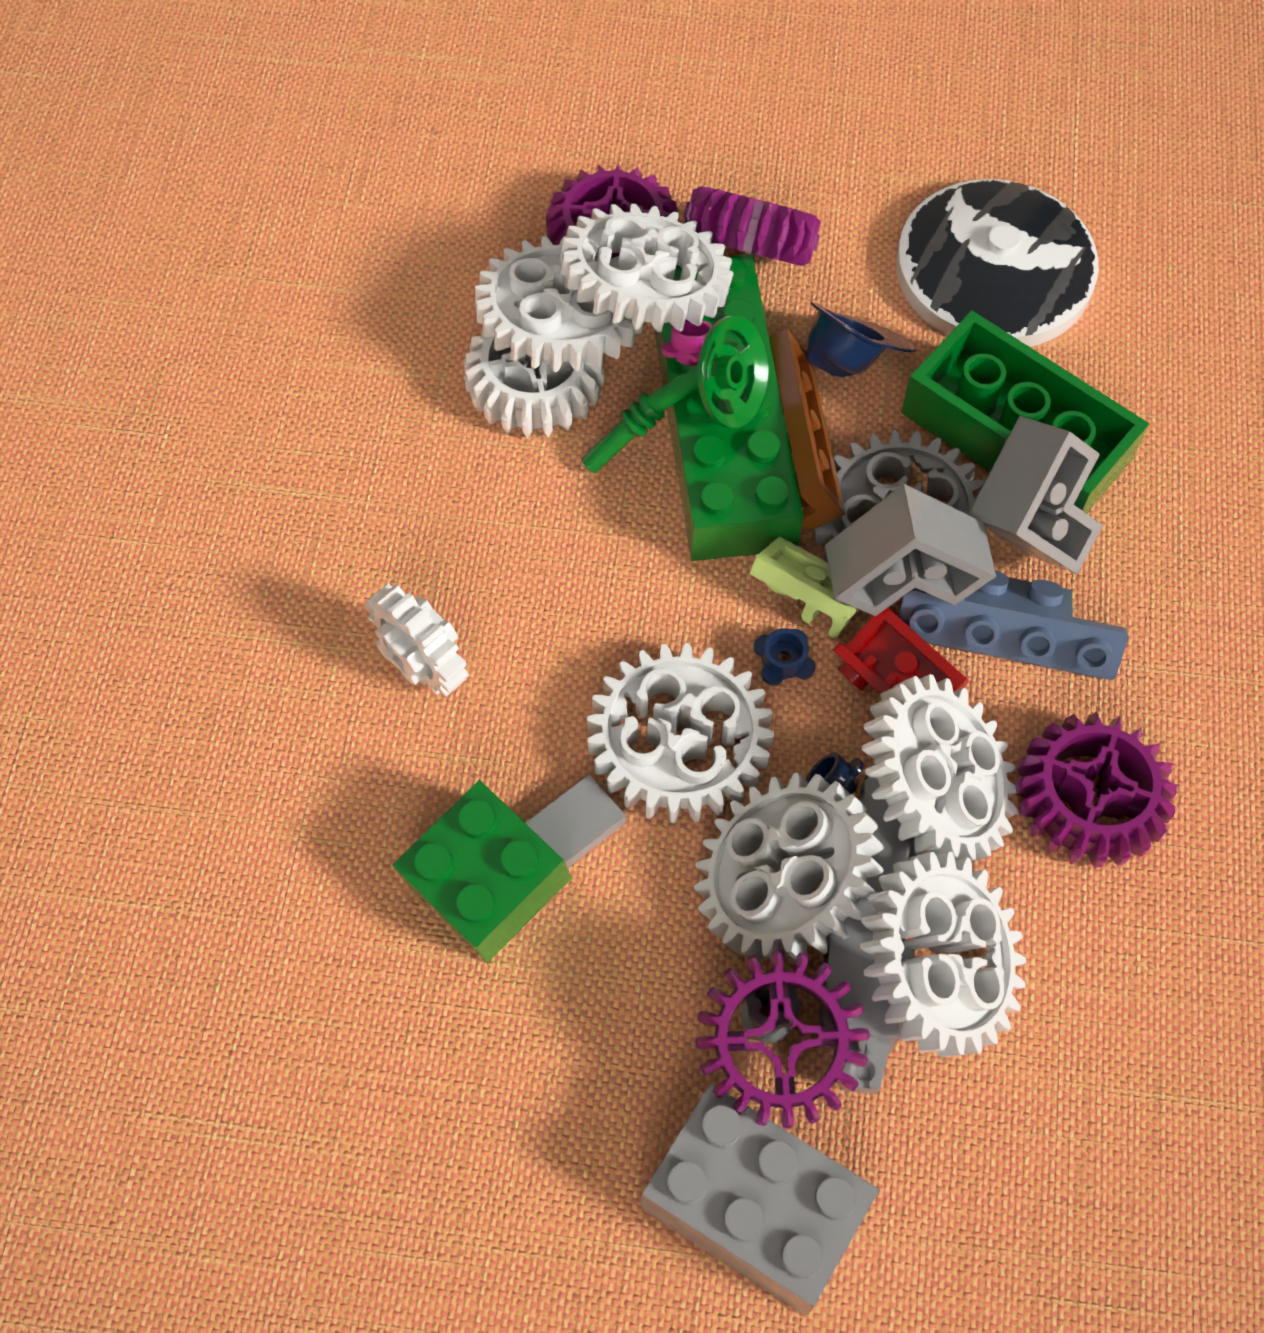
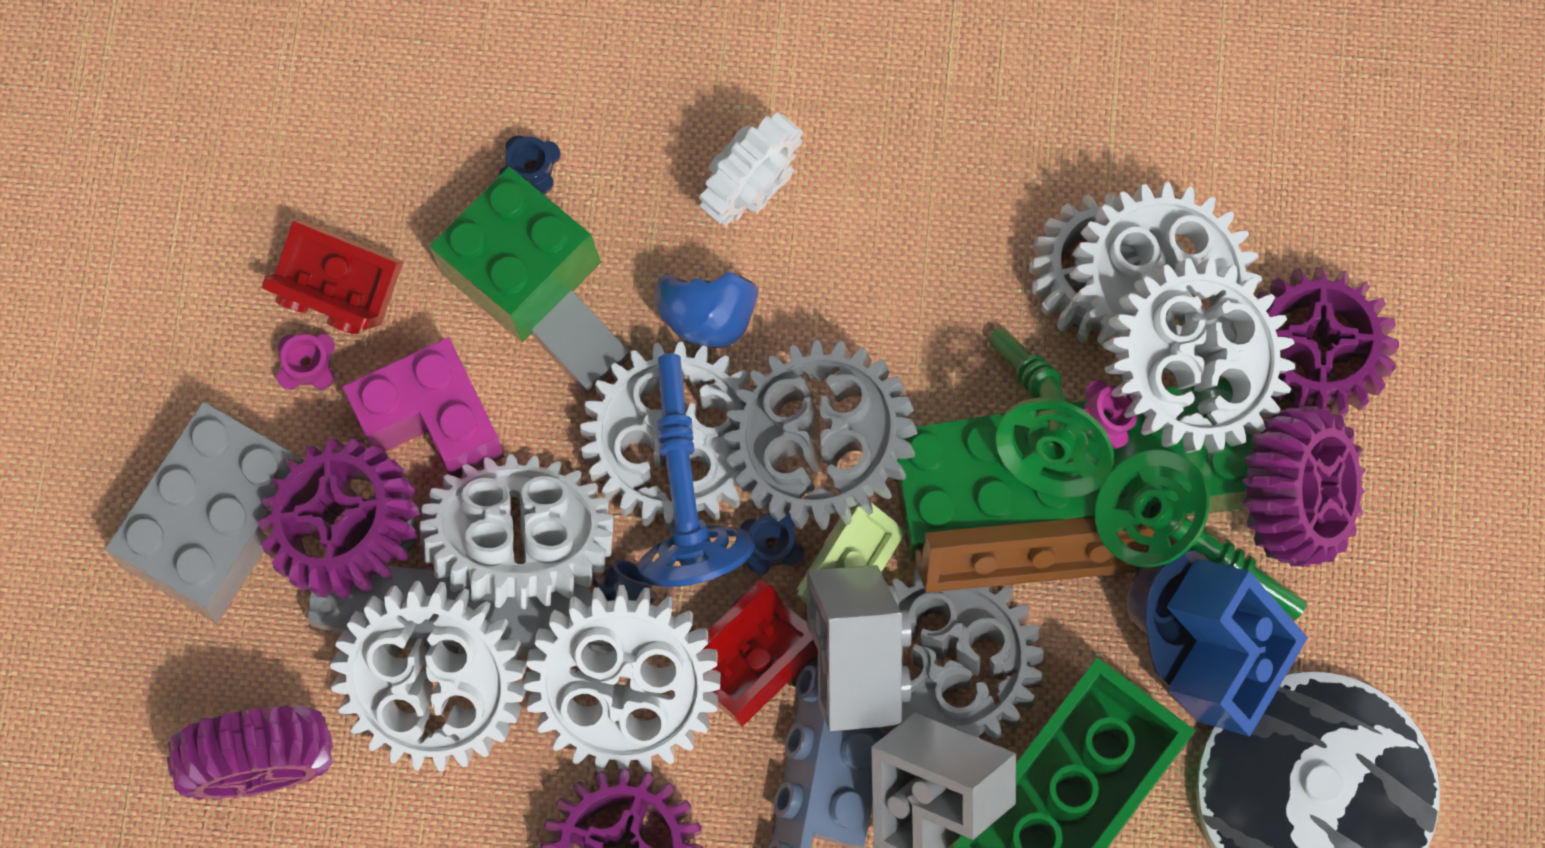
camera: 90 degrees right, 10 degrees up
(365, 854) = (543, 154): none -> dark blue plate
(491, 1066) = (333, 278): none -> red bracket
(554, 693) = (705, 310): none -> blue hair
(568, 1088) = (294, 349): none -> dark pink plate
(637, 953) = (426, 395): none -> dark pink brick
(698, 535) = (872, 428): none -> light grey gear
(790, 705) = (691, 537): none -> blue dish
(791, 306) = (1169, 520): none -> green dish
(884, 286) = (1239, 650): none -> blue brick
(1036, 1142) = (249, 752): none -> magenta gear

